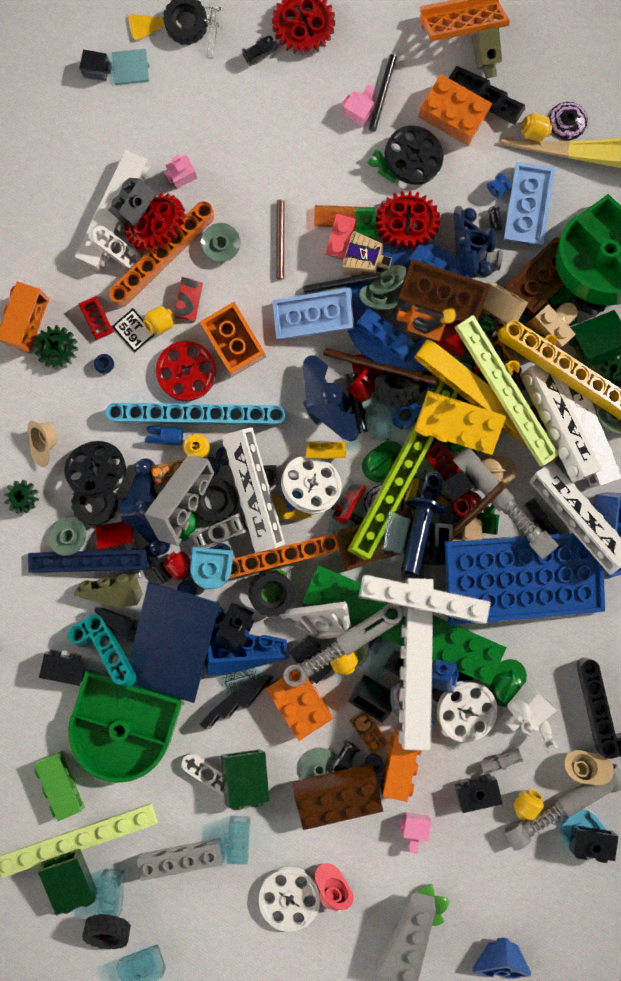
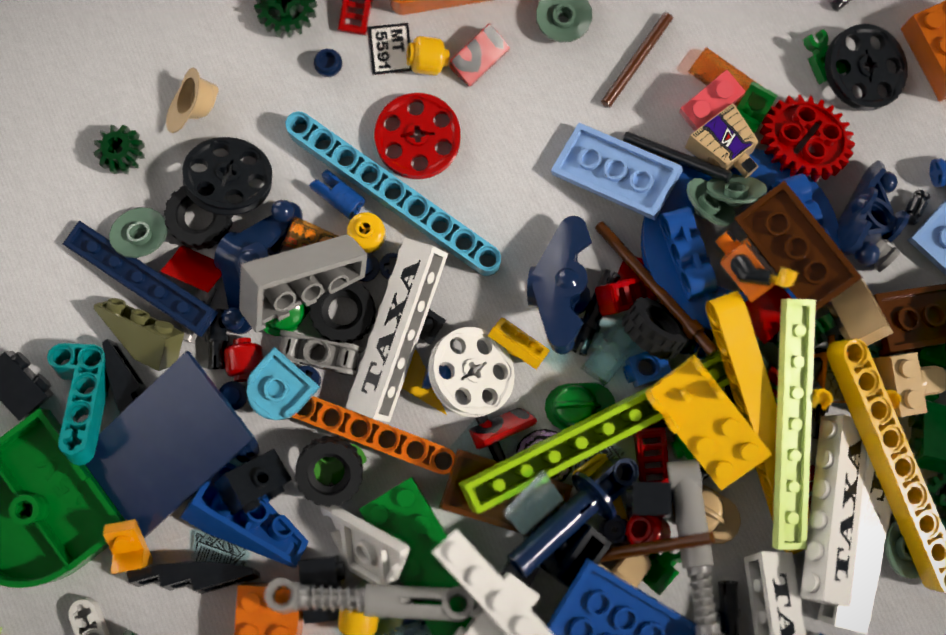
camera: 30 degrees right, 5 degrees down
(190, 710) = (127, 546): none -> light orange slope
(233, 339) = (498, 135): orange brick -> none

